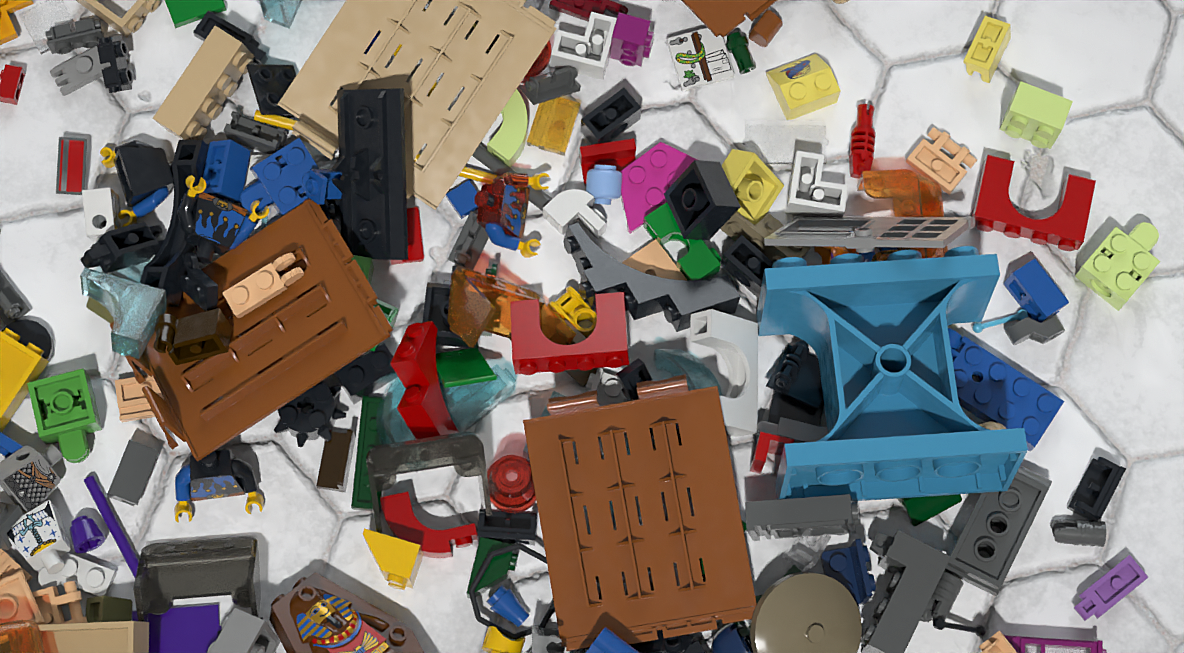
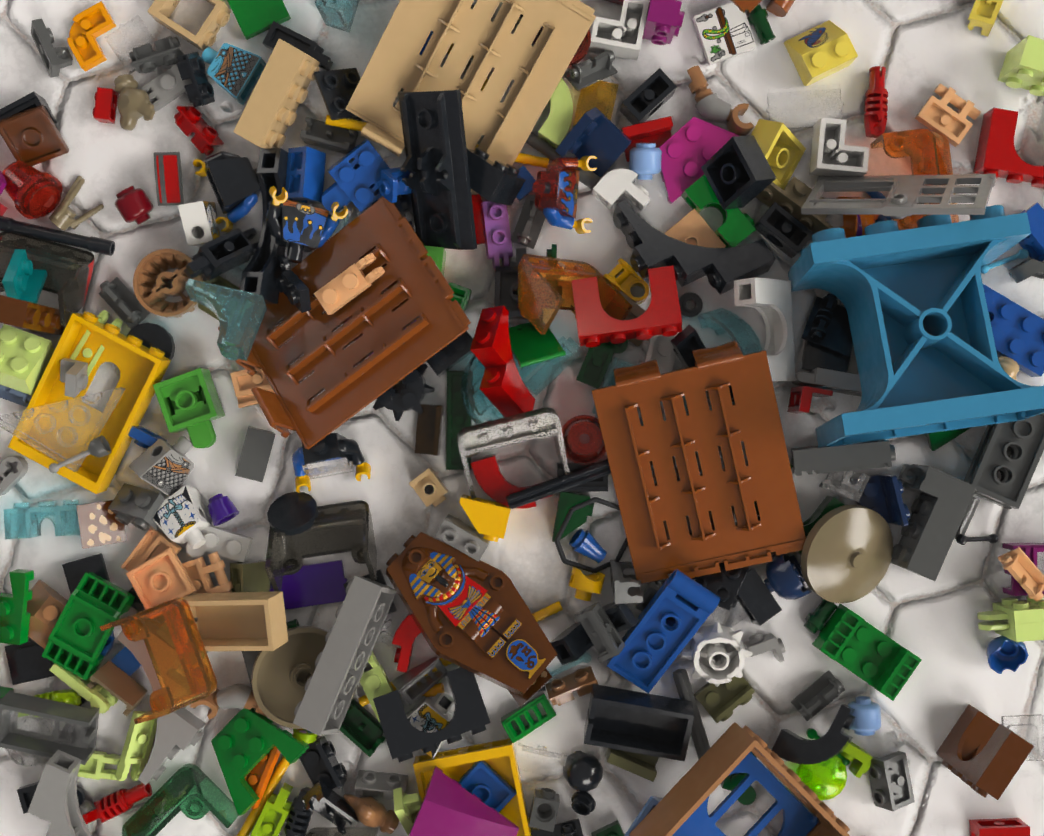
camera: 10 degrees left, 15 degrees up
(28, 191) = (134, 205): none -> dark red head
(41, 83) = (132, 102): none -> dark tan animal
(50, 260) = (152, 283): none -> medium nougat gear
(104, 107) = (189, 121): none -> red hinge
(112, 523) = (243, 497): dark purple bar -> none
(158, 58) = (234, 70): none -> torso
(168, 541) = (292, 513): none -> black tile
(192, 336) = (291, 335): dark brown hinge -> none
(215, 493) = (328, 468): none -> clear piece
(321, 516) = (429, 478): none -> tan brick
(363, 582) = (462, 537): none -> light grey bracket
(433, 188) = (493, 179): none -> black brick
(433, 248) = (496, 232): none -> medium lavender hinge
(478, 526) = (558, 484): none -> black axle
(536, 394) = (597, 363): none -> dark green hinge
(548, 153) = (595, 137): none -> dark blue bracket
(640, 350) = (697, 301): none -> black plate
(684, 135) = (714, 108): none -> medium nougat piece

